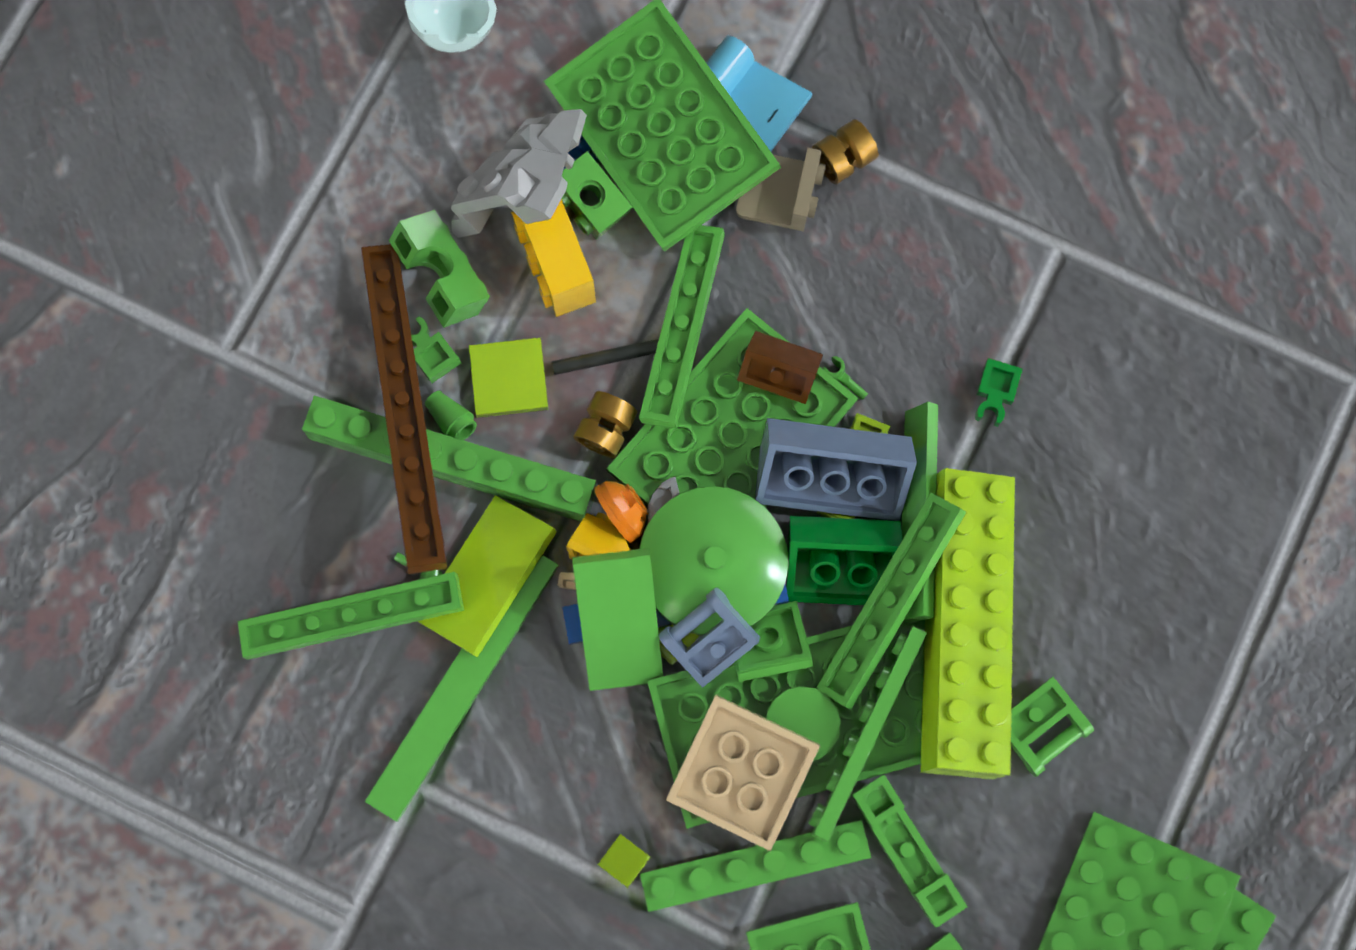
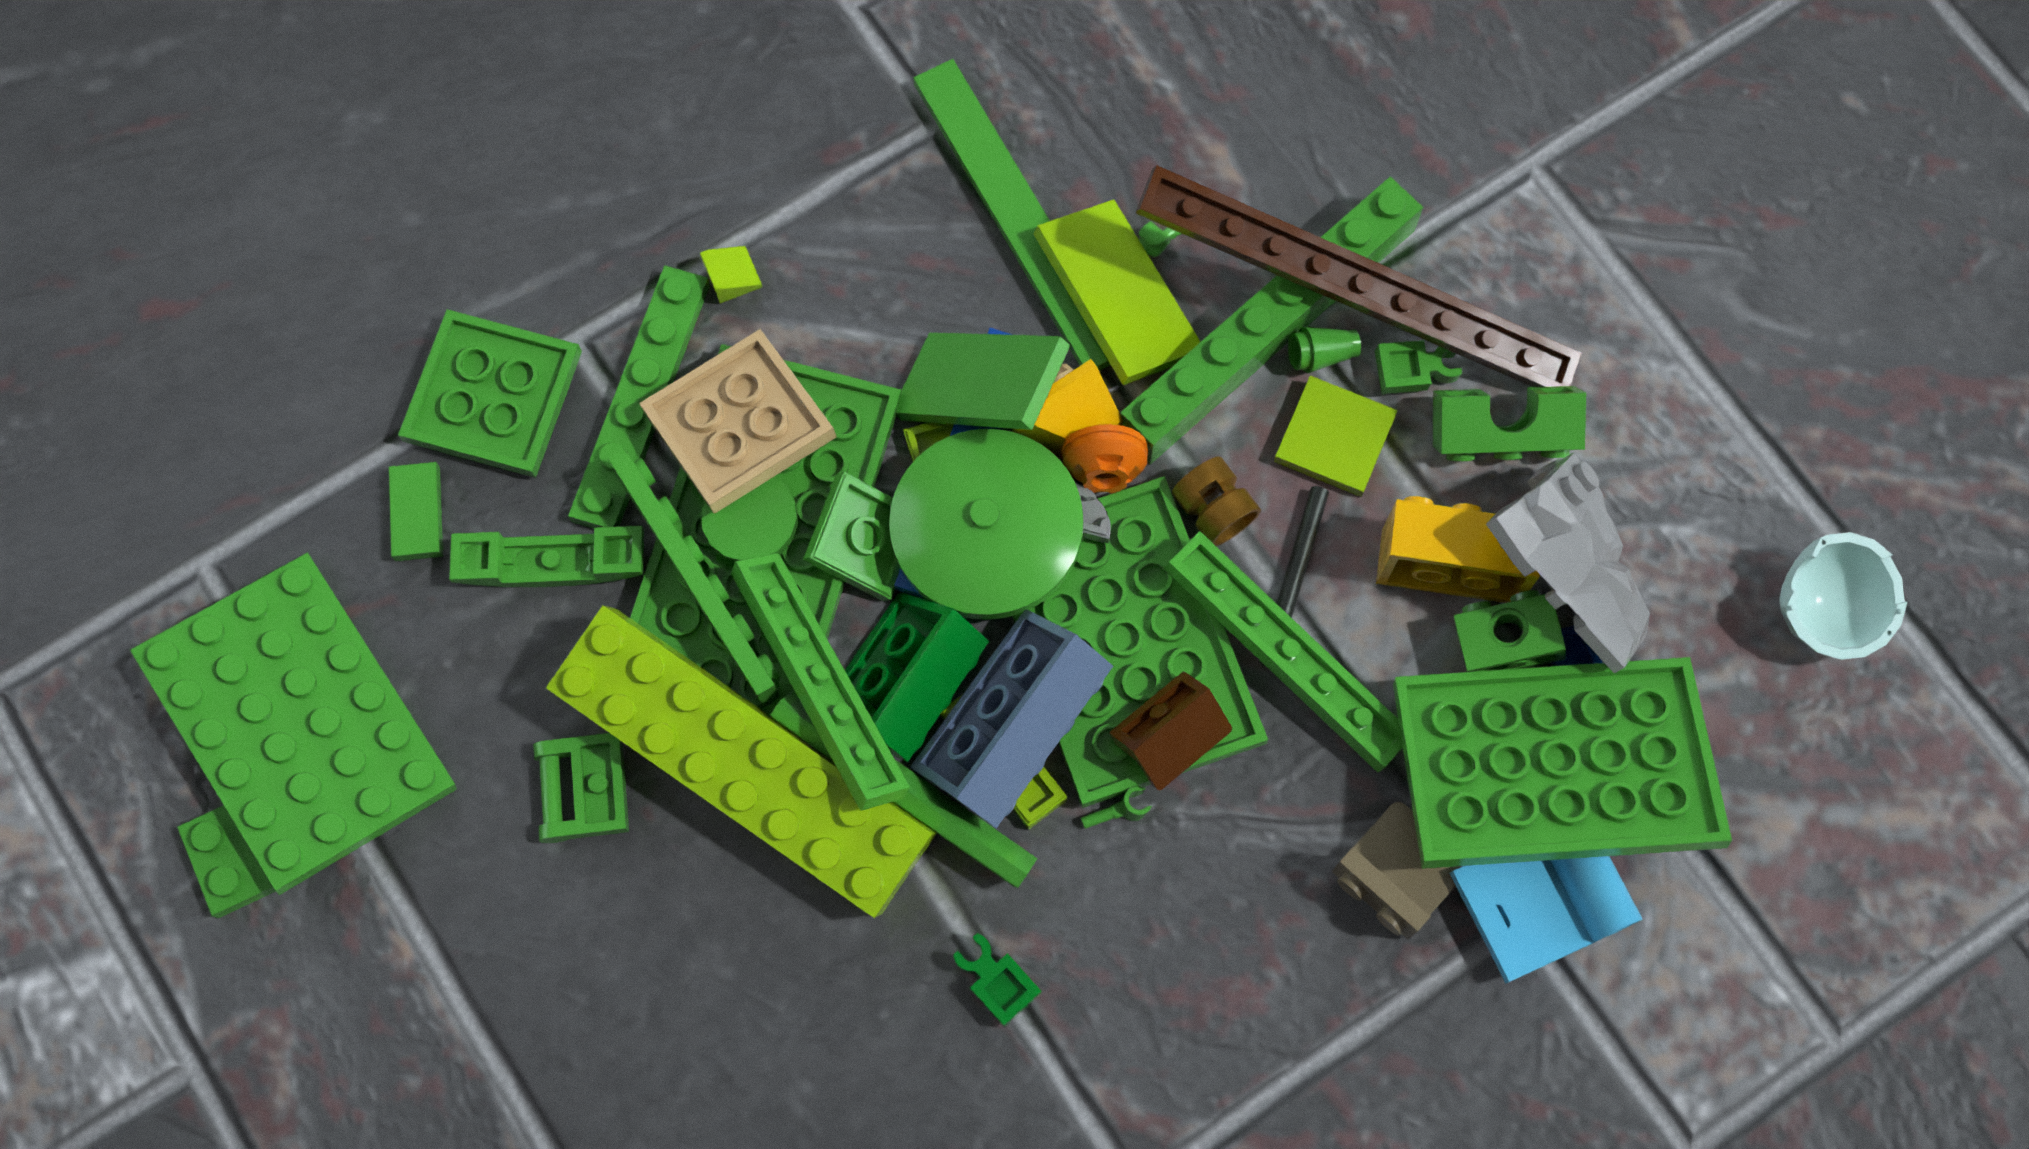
camera: 125 degrees right, 5 degrees down
(350, 615) = (1153, 132): bright green plate -> none
(718, 646) = (885, 463): sand blue plate -> none
(847, 150) = (1402, 994): pearl gold wheel -> none

